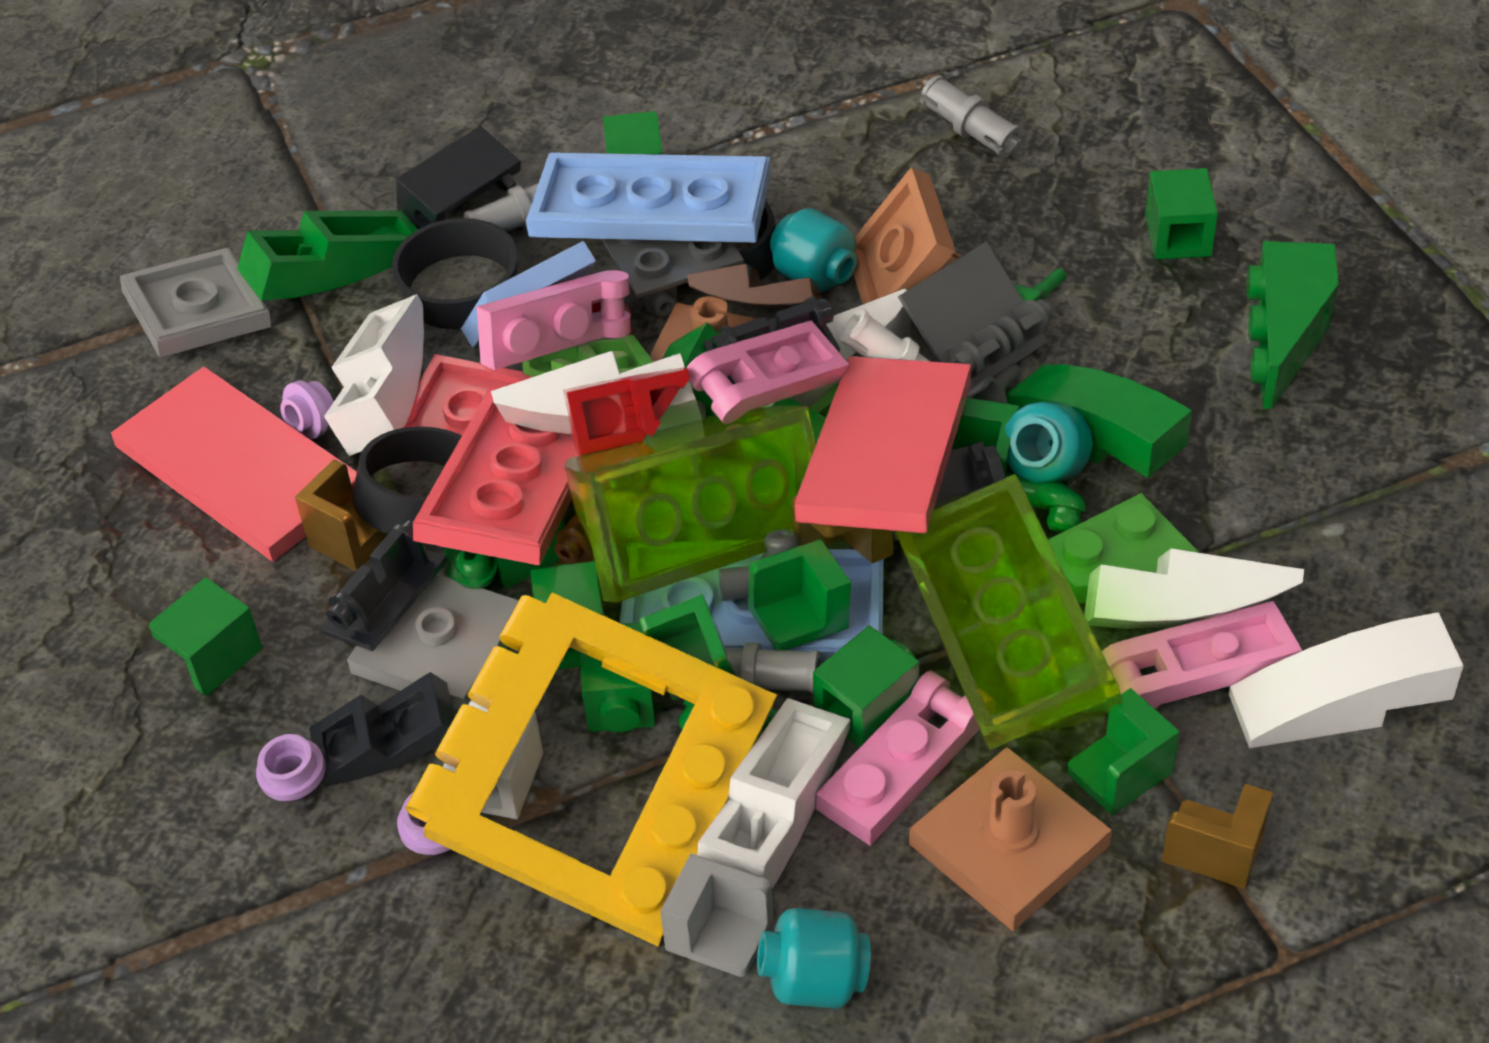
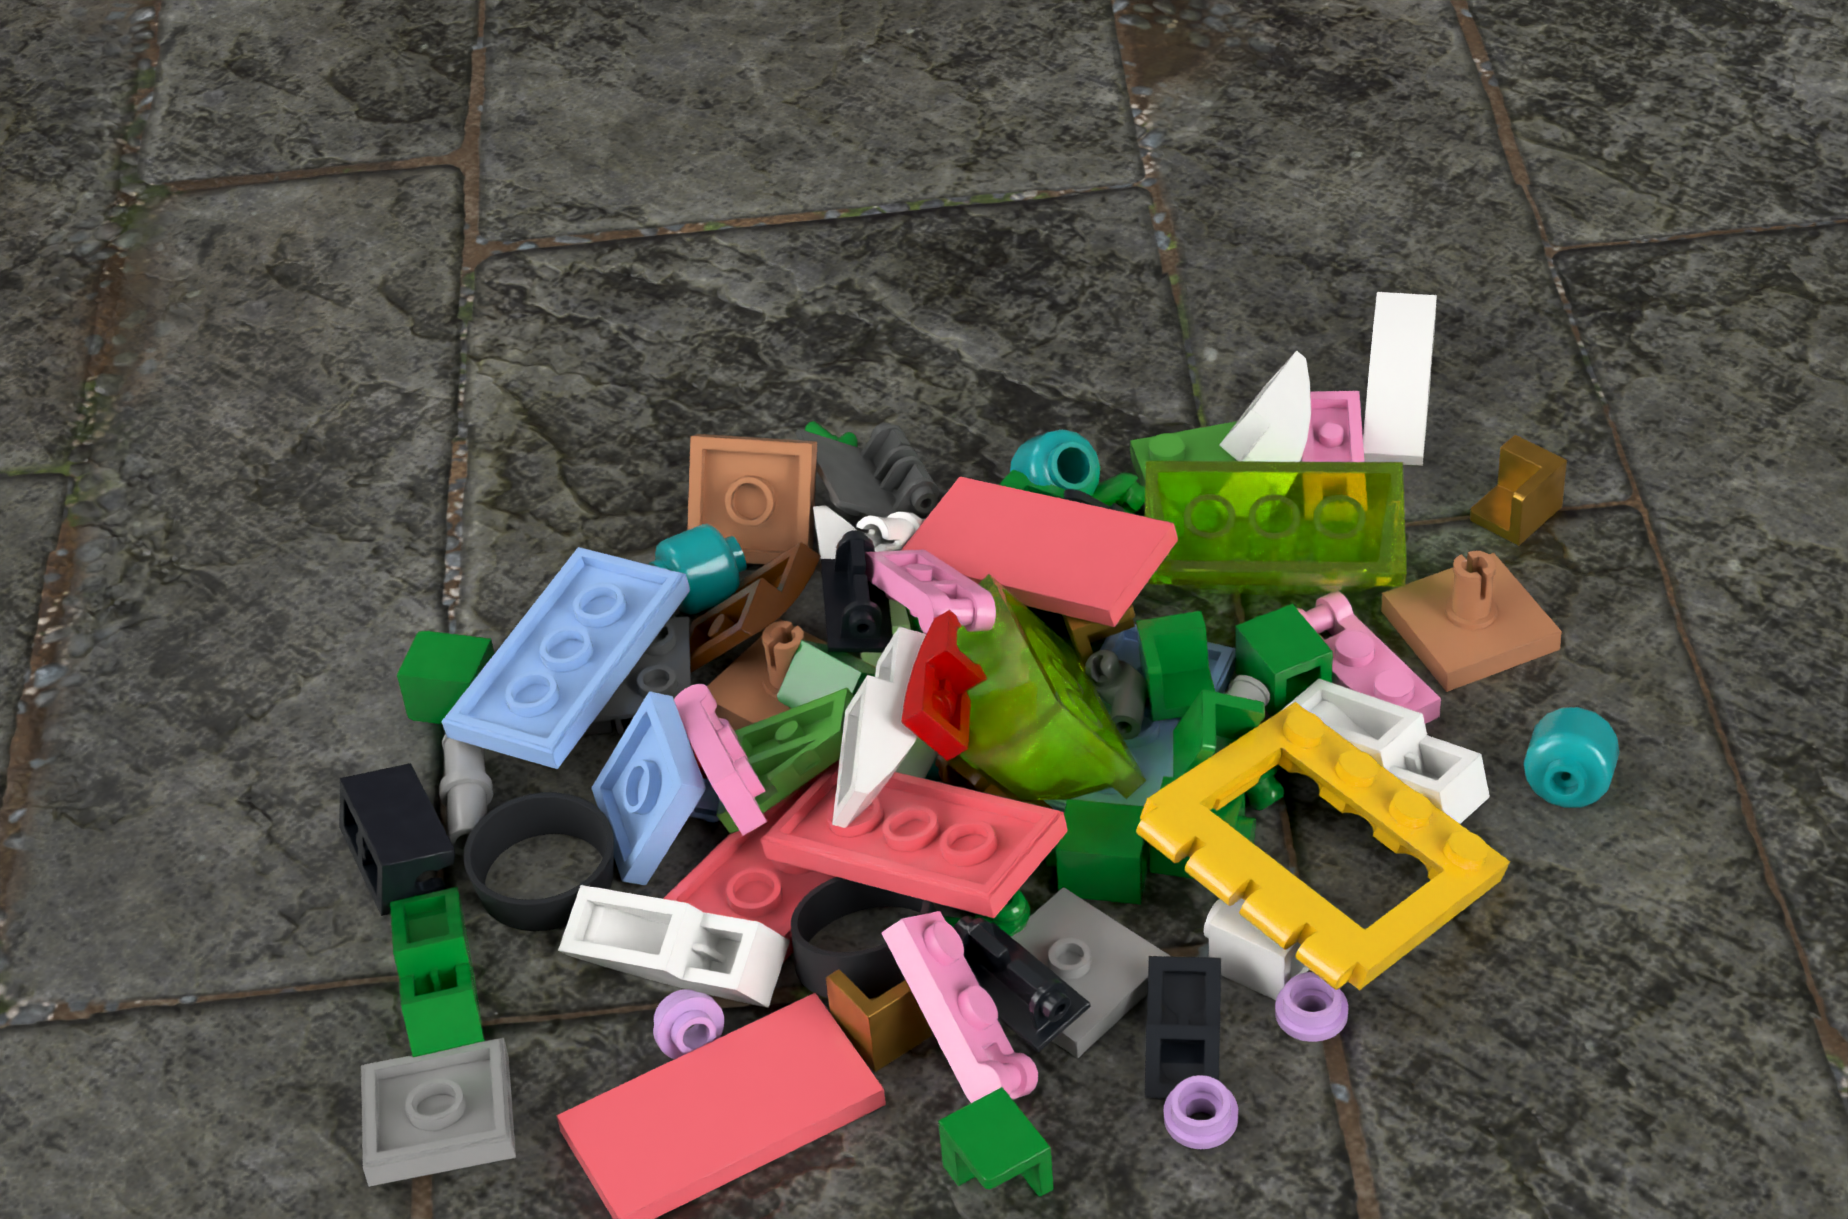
camera: 70 degrees left, 5 degrees down
(328, 554) = (958, 1008): none -> bright pink plate
(717, 915) = (1497, 816): light grey panel -> none
(971, 116) = (558, 423): light grey pin -> none
(1123, 416) = (1066, 401): green slope -> none
(1130, 757) = (1431, 524): green panel -> none
(1181, 213) = (796, 322): green brick -> none
(1292, 313) = (969, 293): green slope -> none

